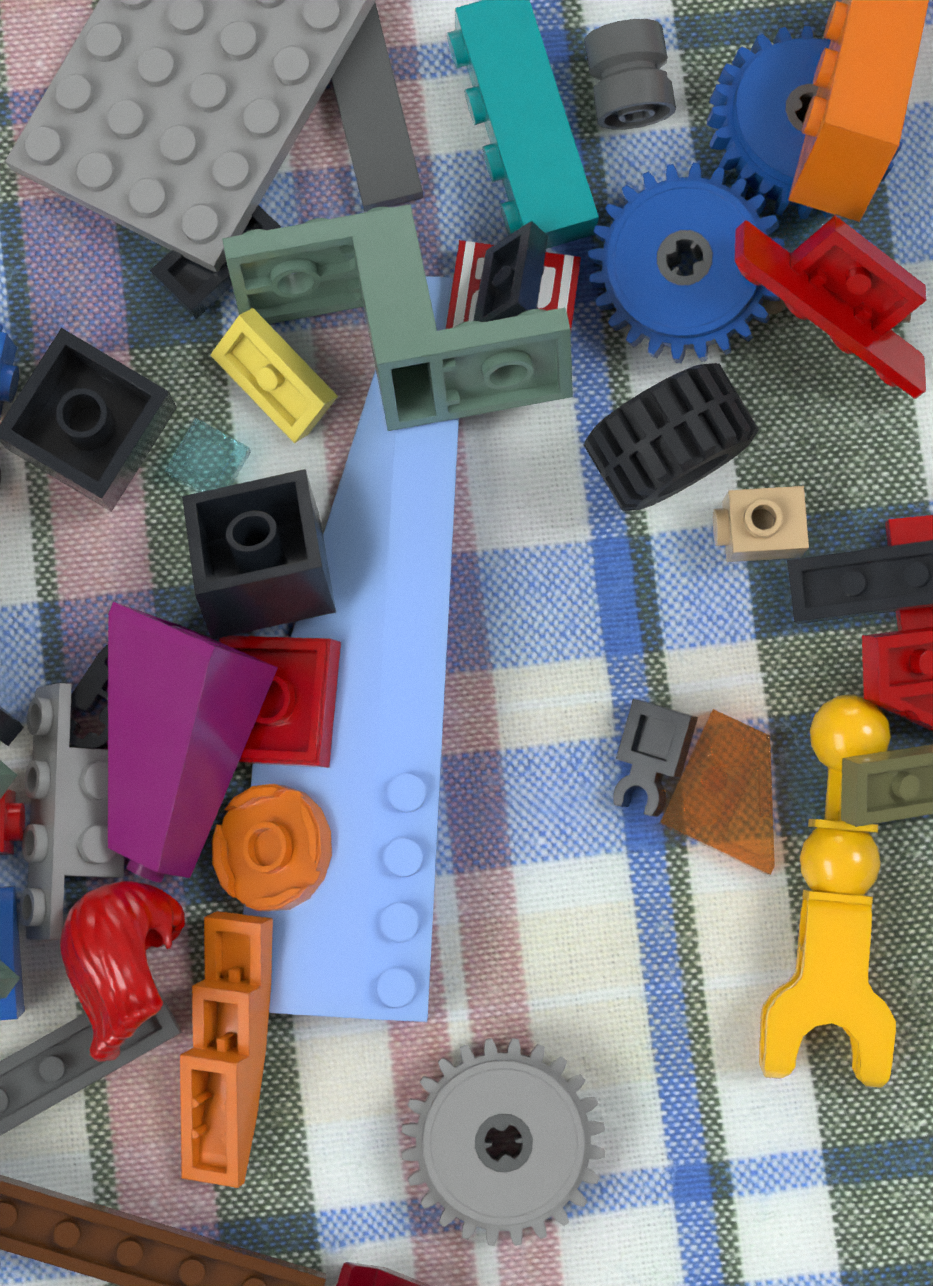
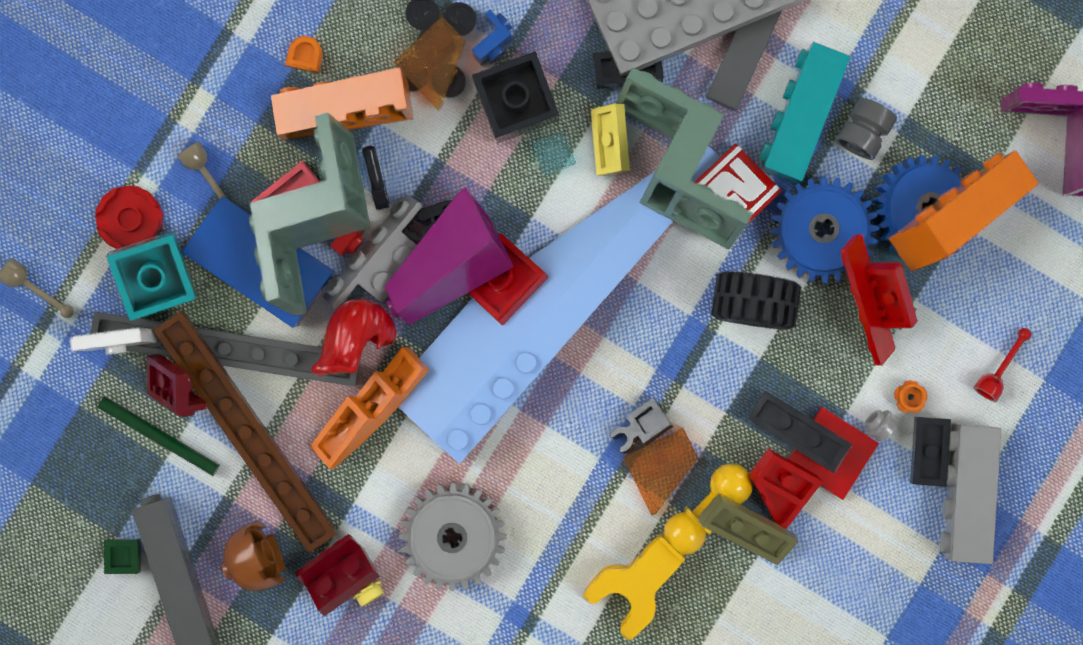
camera: 40 degrees right, 5 degrees up
(258, 554) = (543, 212): black brick -> none
(272, 848) = (452, 340): orange tile -> none
(512, 275) = (743, 179): black plate -> none
(762, 524) = (766, 366): tan brick -> none

